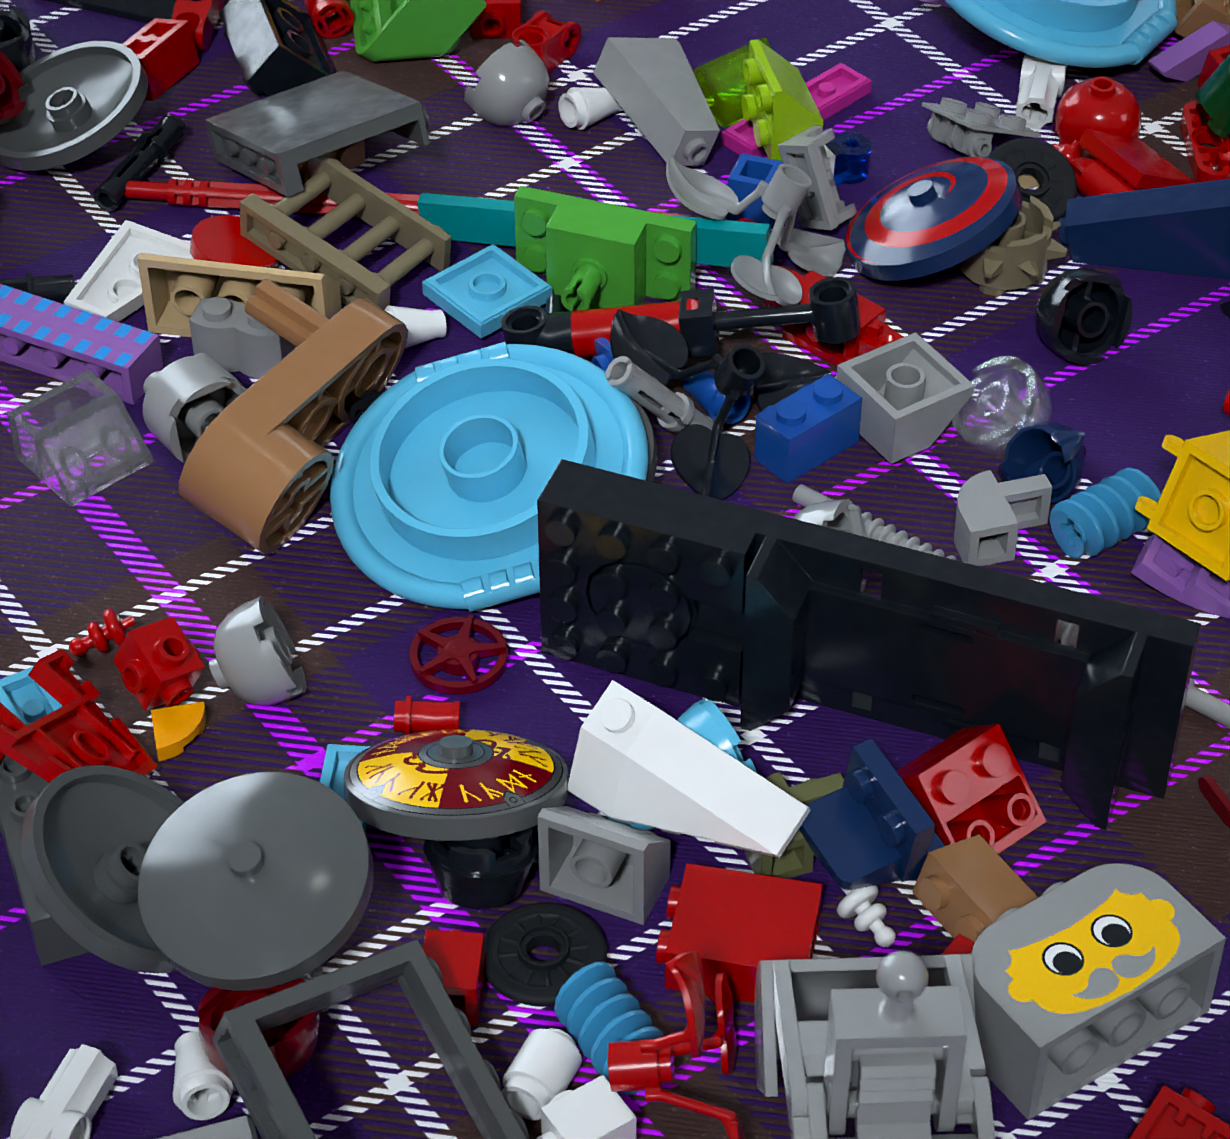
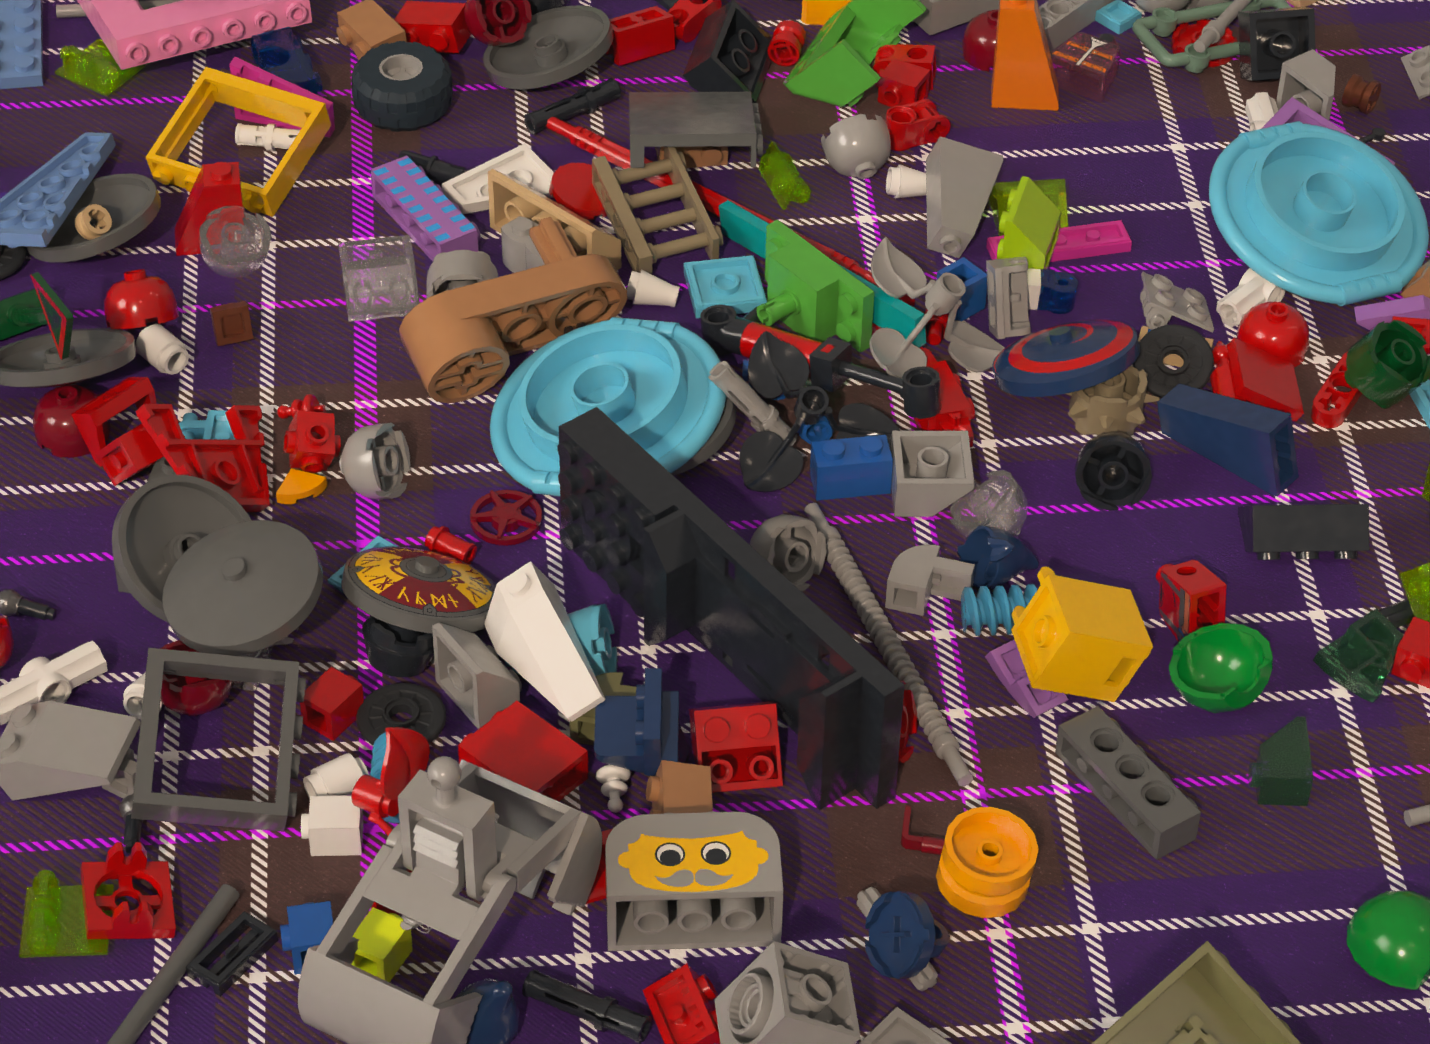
camera: 30 degrees right, 0 degrees up
(451, 154) = (783, 177): none -> clear neon green hinge

